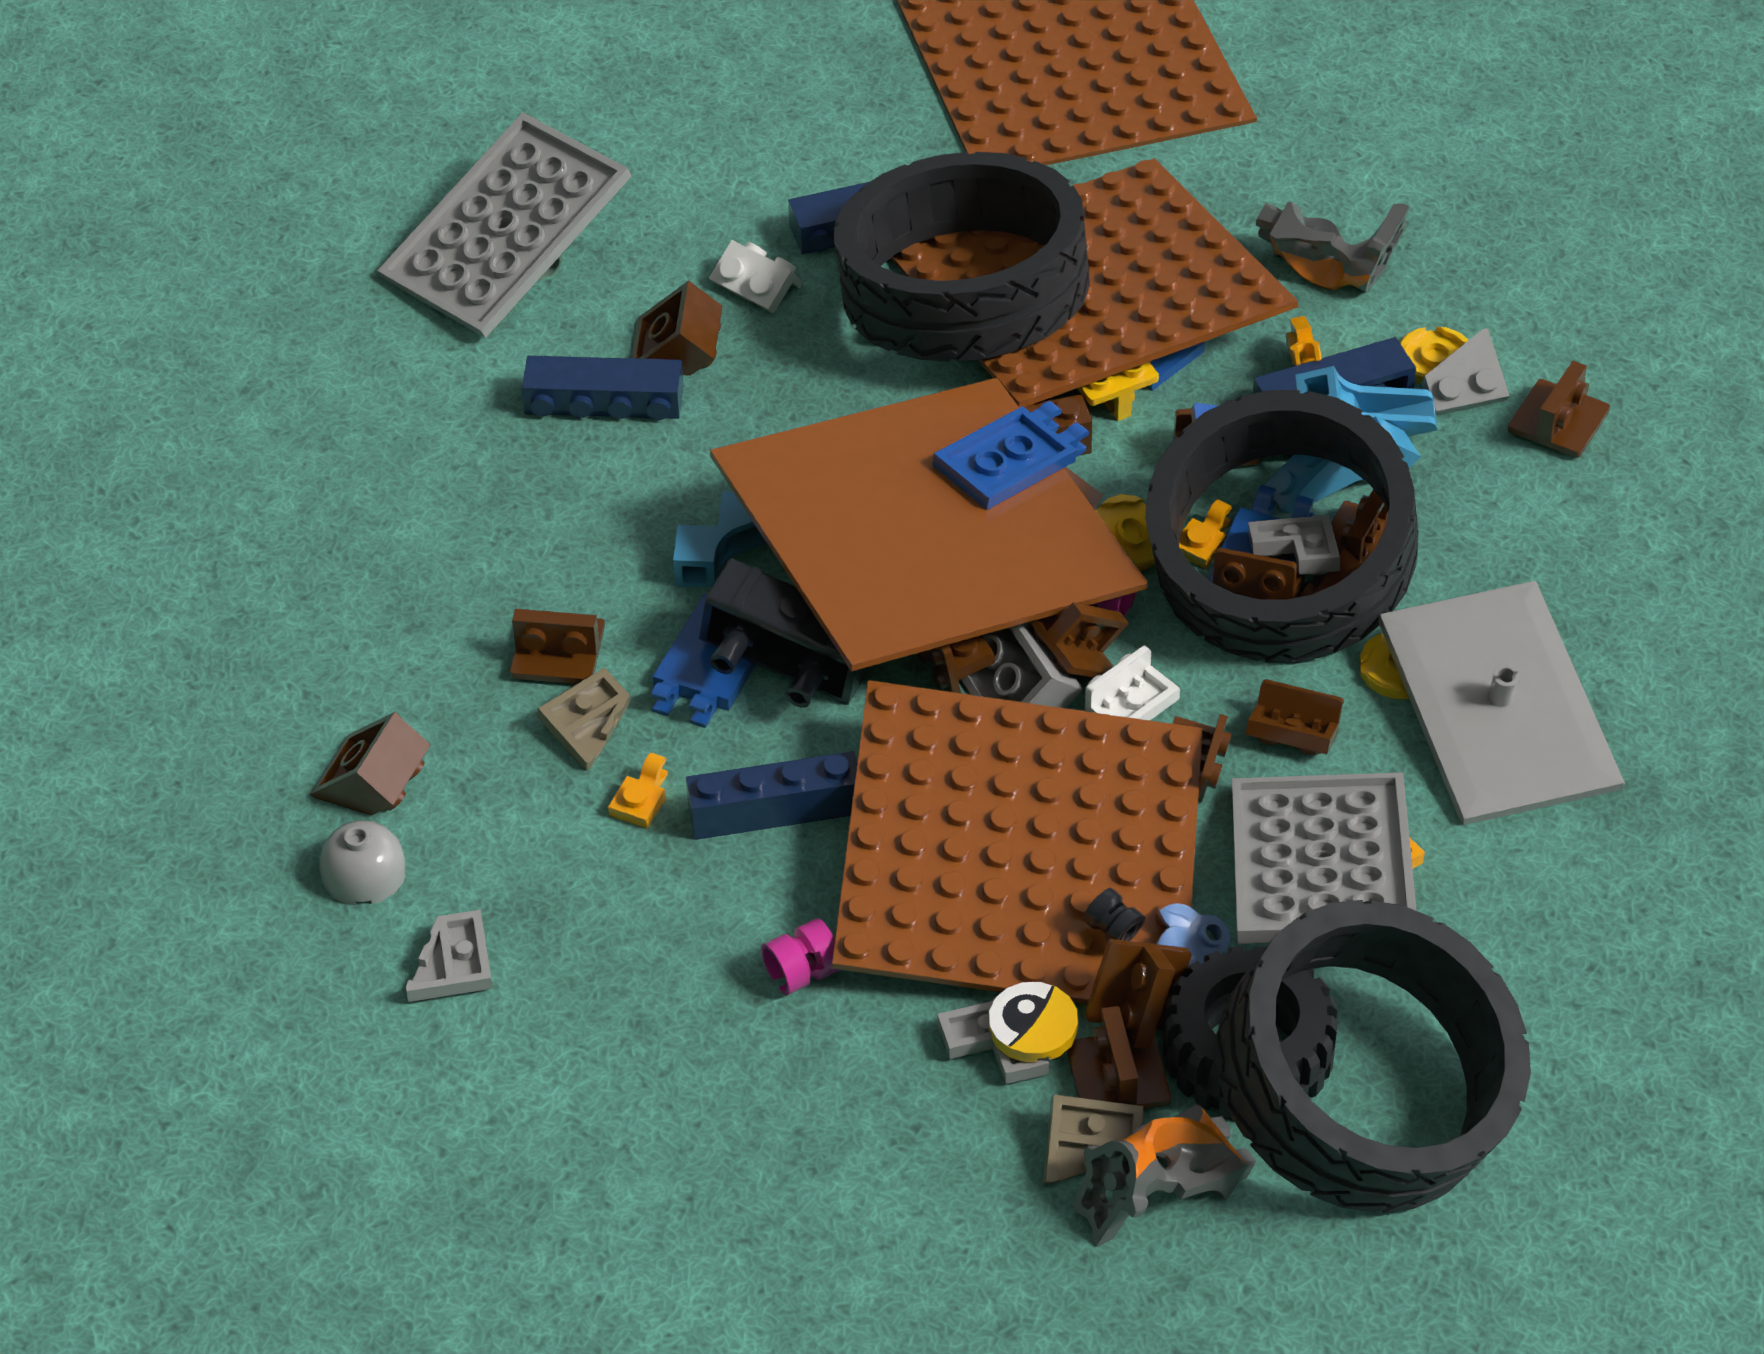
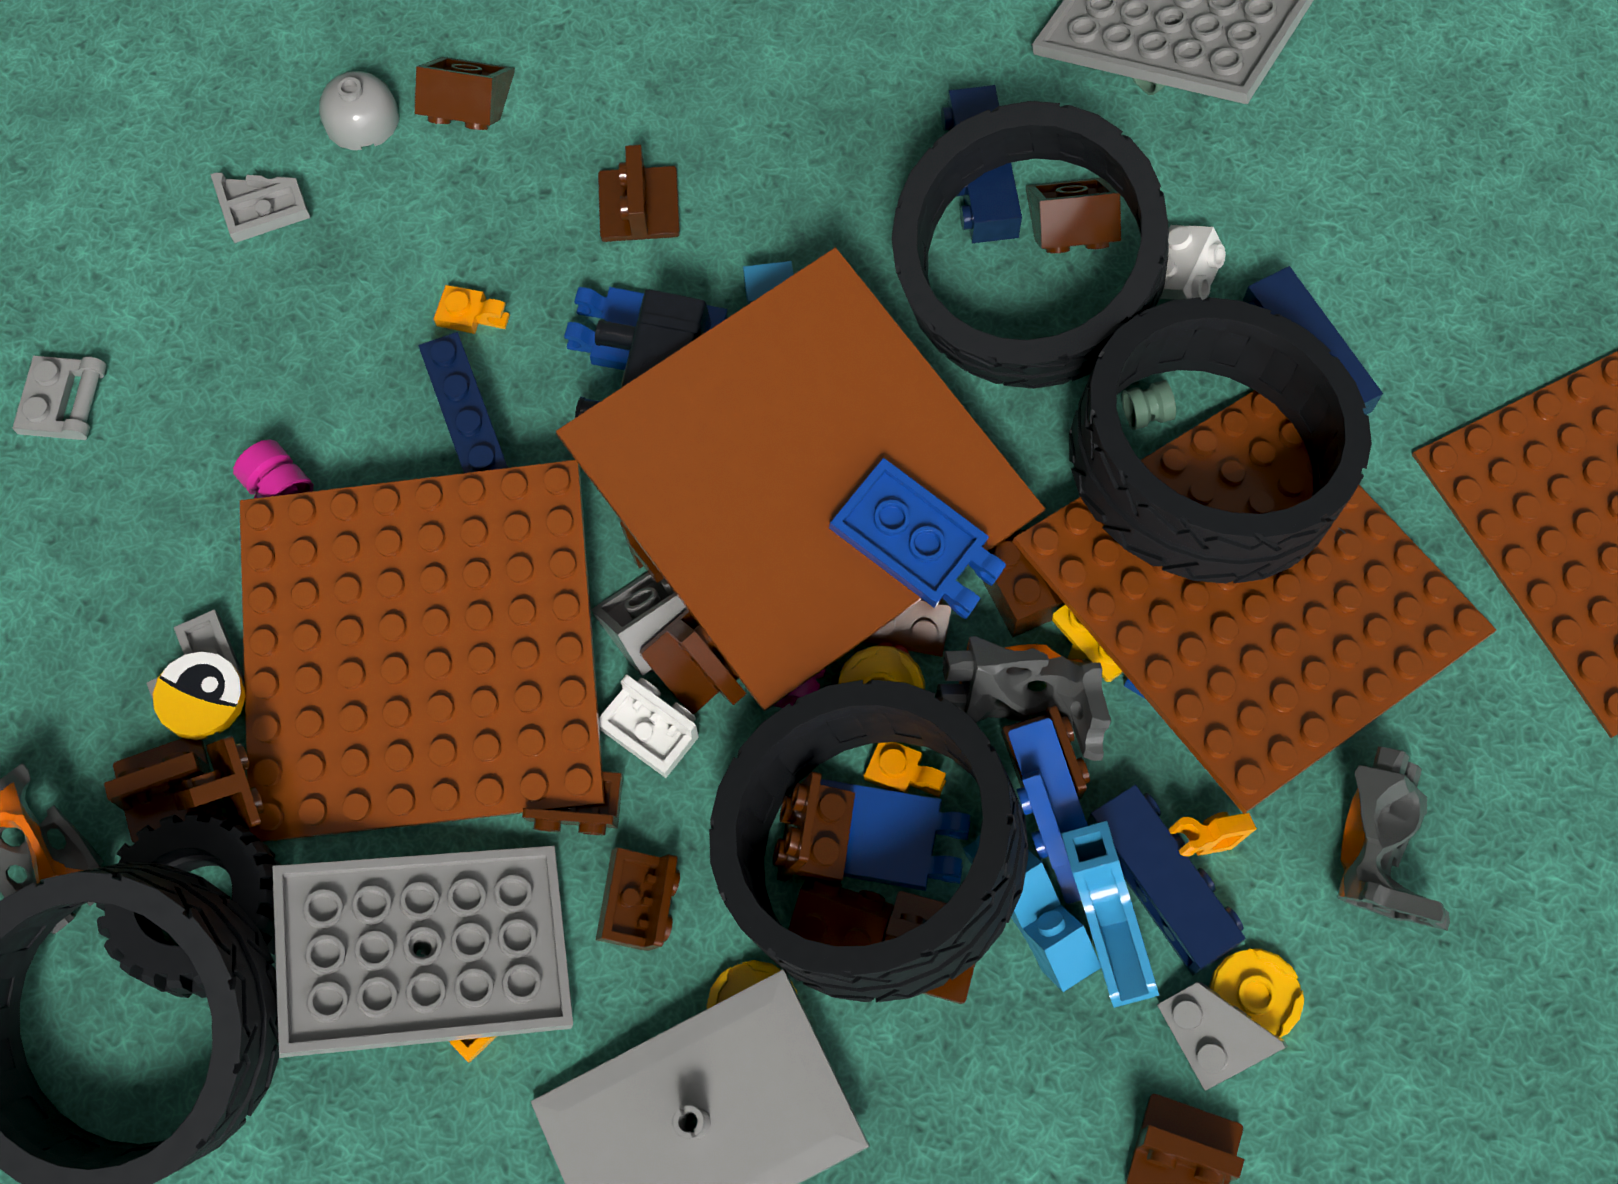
camera: 80 degrees right, 20 degrees up
(586, 716) = (553, 244): dark tan wing -> none
(638, 1163) = (48, 393): none -> light grey plate
(747, 249) = (1014, 135): none -> black tyre
(1079, 1124) = (80, 767): dark tan wing -> none
(1113, 916) = (308, 756): black wheel -> none
(1145, 424) = (997, 681): none -> dark grey hips
(1188, 930) = (320, 827): medium blue plate -> none
(1306, 537) = (886, 874): light grey plate -> none

